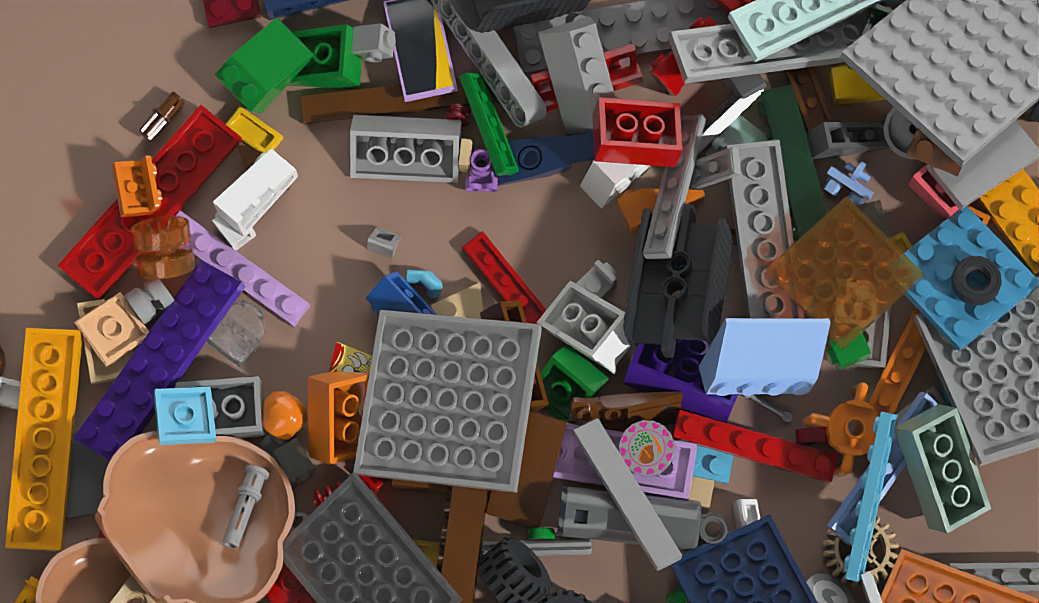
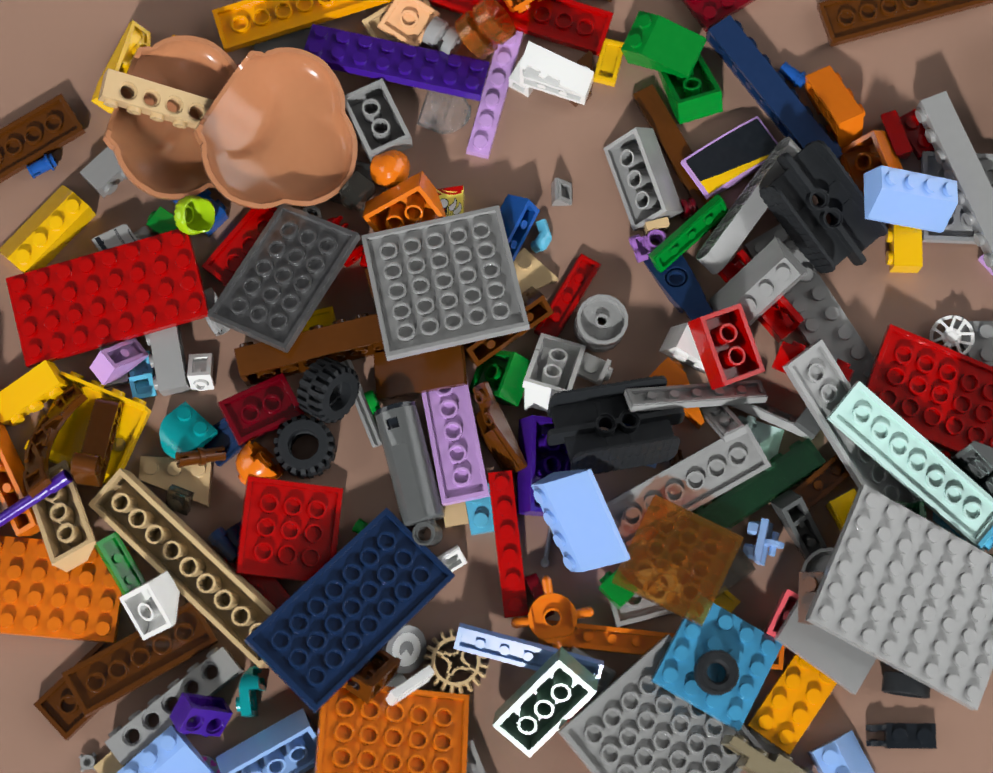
camera: 70 degrees right, 0 degrees up
(184, 415) = (355, 91): medium azure plate -> none
(251, 495) = (315, 166): light grey pin -> none
(373, 42) = (717, 118): light grey brick -> none
(548, 271) = (596, 336): none -> light grey wheel
(627, 494) = (423, 452): light grey tile -> none
(647, 448) = (469, 455): tile -> none
(872, 484) = (504, 647): medium azure plate -> none

